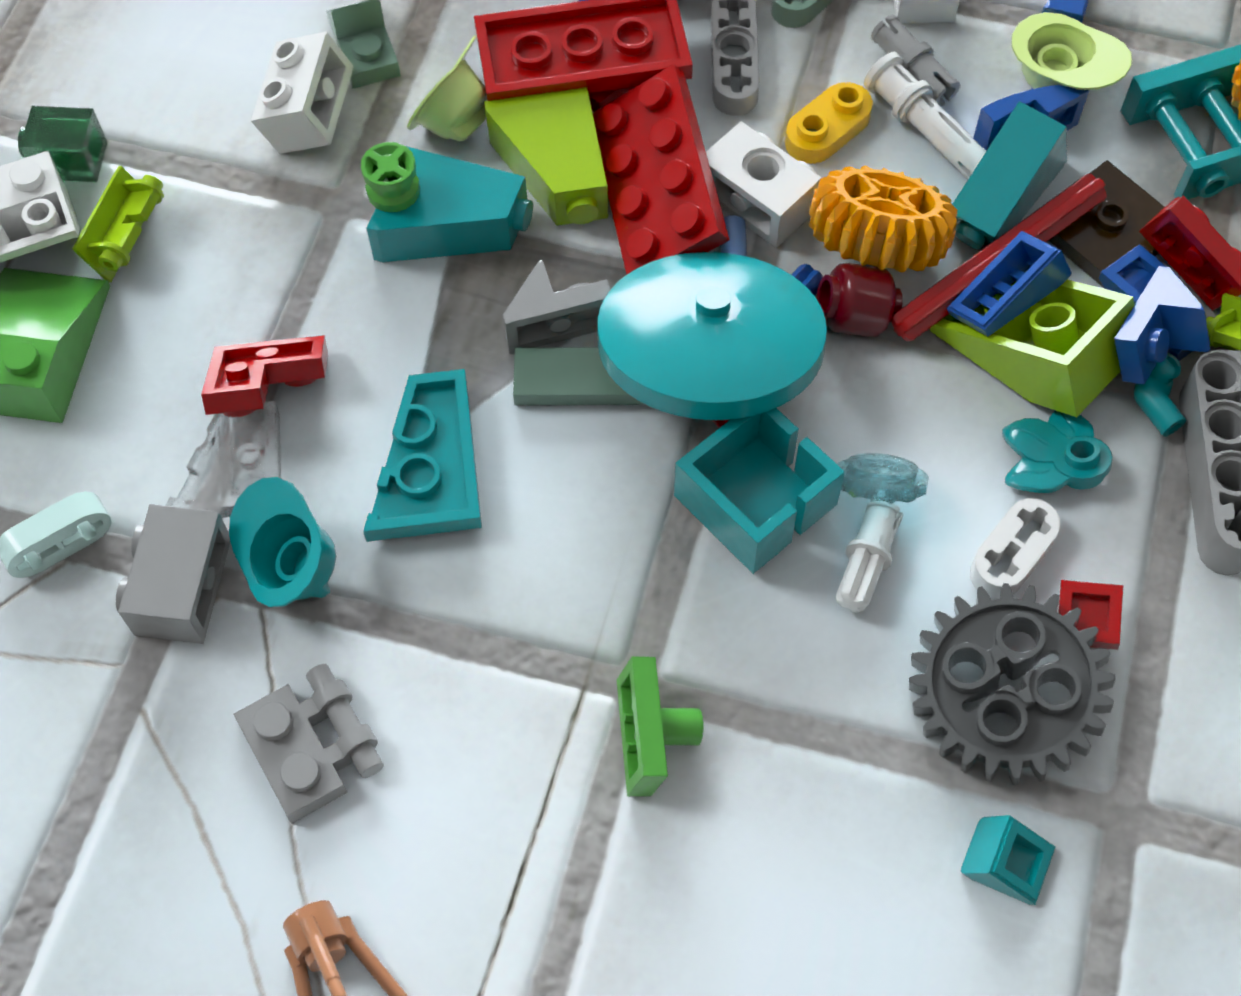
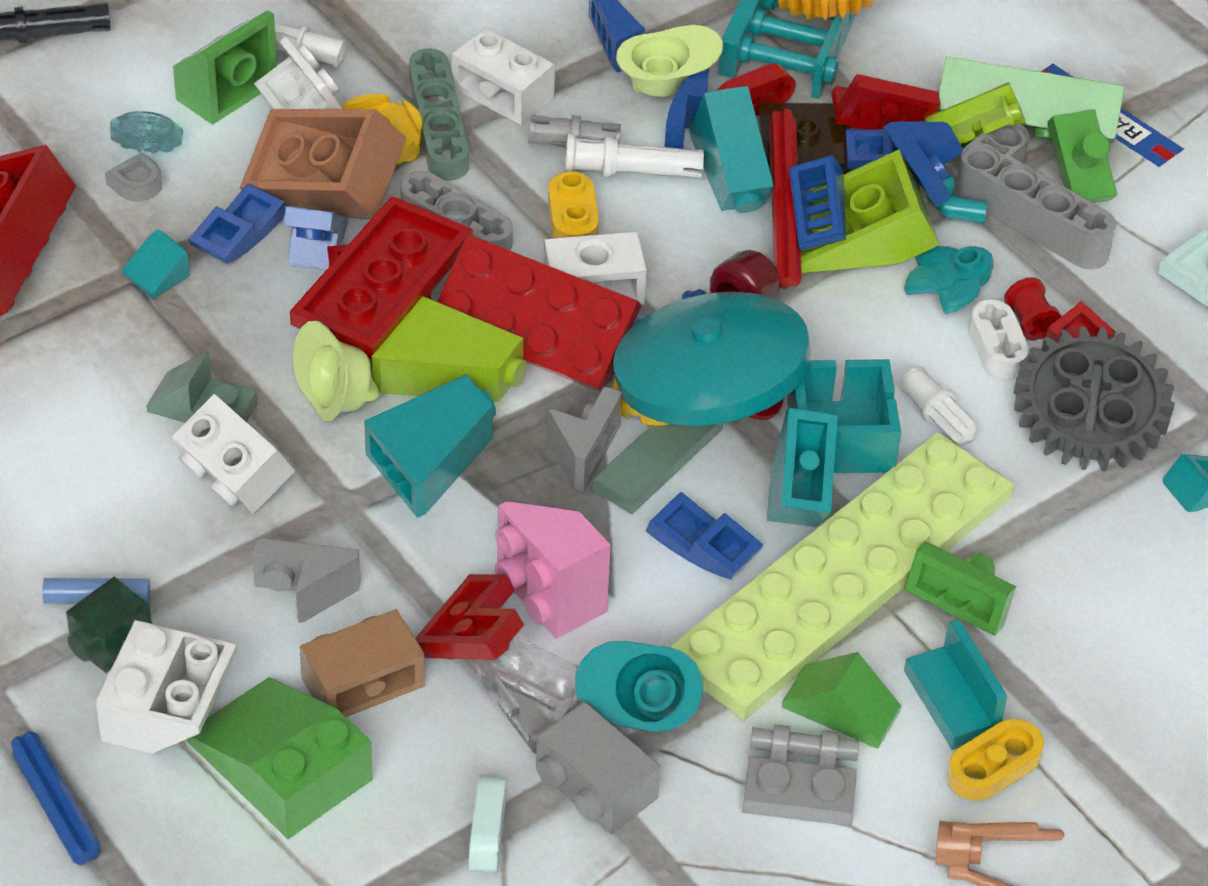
camera: 55 degrees left, 15 degrees down
(111, 121) = (75, 589): none -> medium blue piece
(117, 222) = (222, 617): lime hinge -> none
(154, 330) = (363, 664): none -> medium nougat brick
(221, 234) = (316, 573): none -> light grey slope
(352, 385) = (553, 564): none -> bright pink slope
(396, 167) = (398, 436): bright green wheel -> none
(424, 721) = (845, 698): none -> bright green slope
(431, 463) = (654, 584): teal wing -> none
(455, 900) = (991, 763): none -> yellow plate
(513, 807) = (957, 687): none -> teal panel
(527, 476) = (708, 543): none -> blue slope
(592, 614) = (840, 574): none -> yellowish green plate
(644, 495) = (803, 468): none -> teal slope
(882, 218) = (702, 225): light orange gear -> none
(883, 478) = (904, 353): clear light blue gear -> none
(1081, 548) = (1032, 308): none -> red bush
(1117, 144) = (765, 85): none -> red beam

